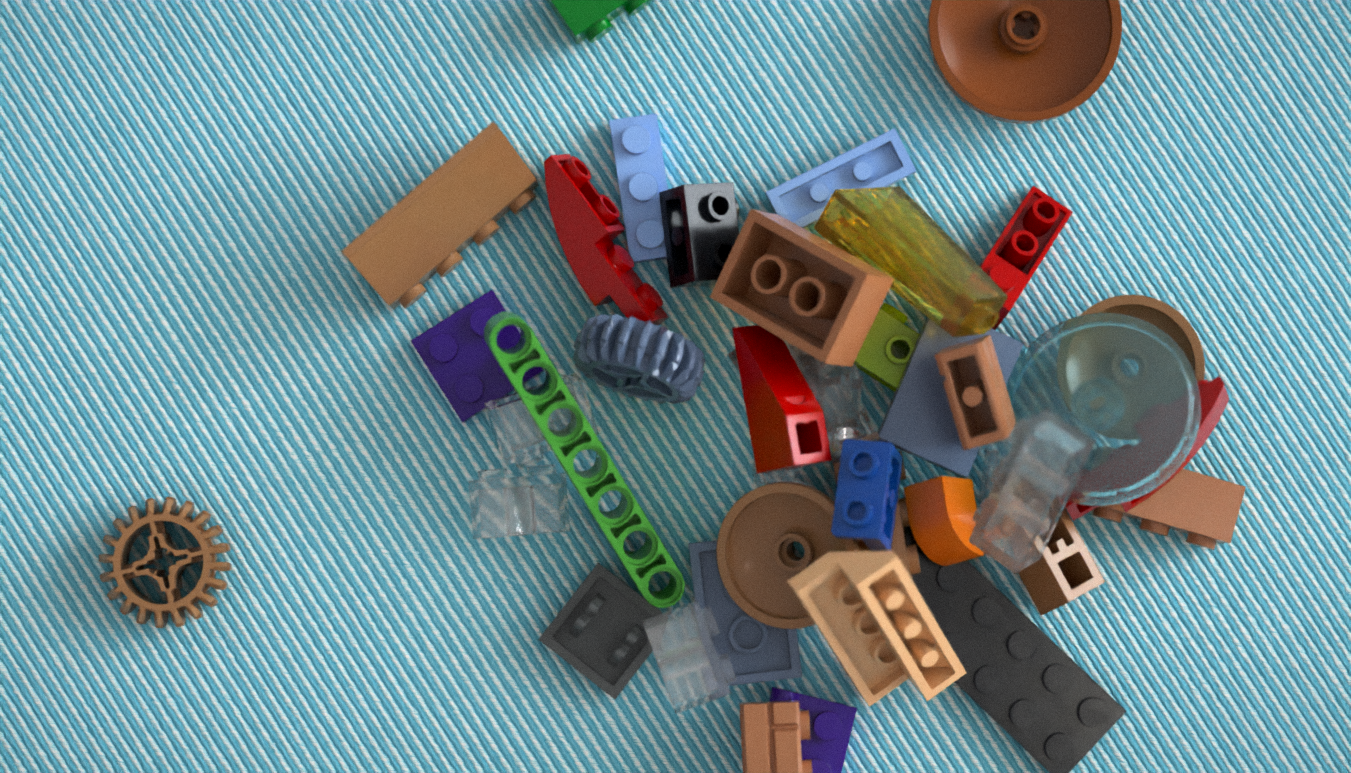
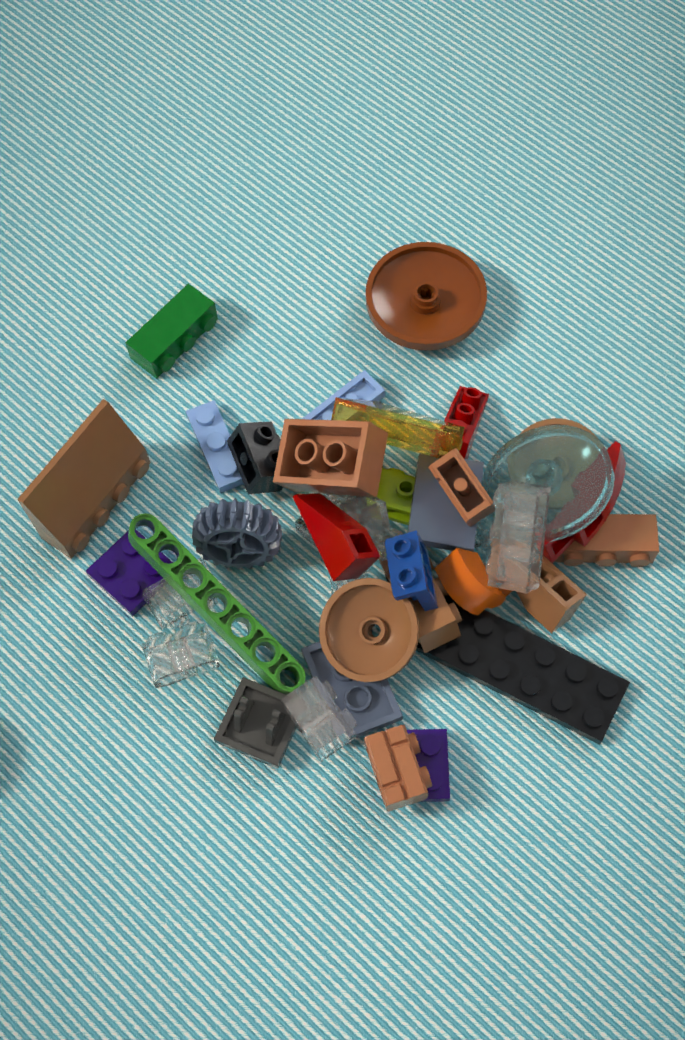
camera: 10 degrees left, 20 degrees down
(586, 228) = (186, 472): red slope -> none
(876, 623) = (442, 654): light nougat slope -> none

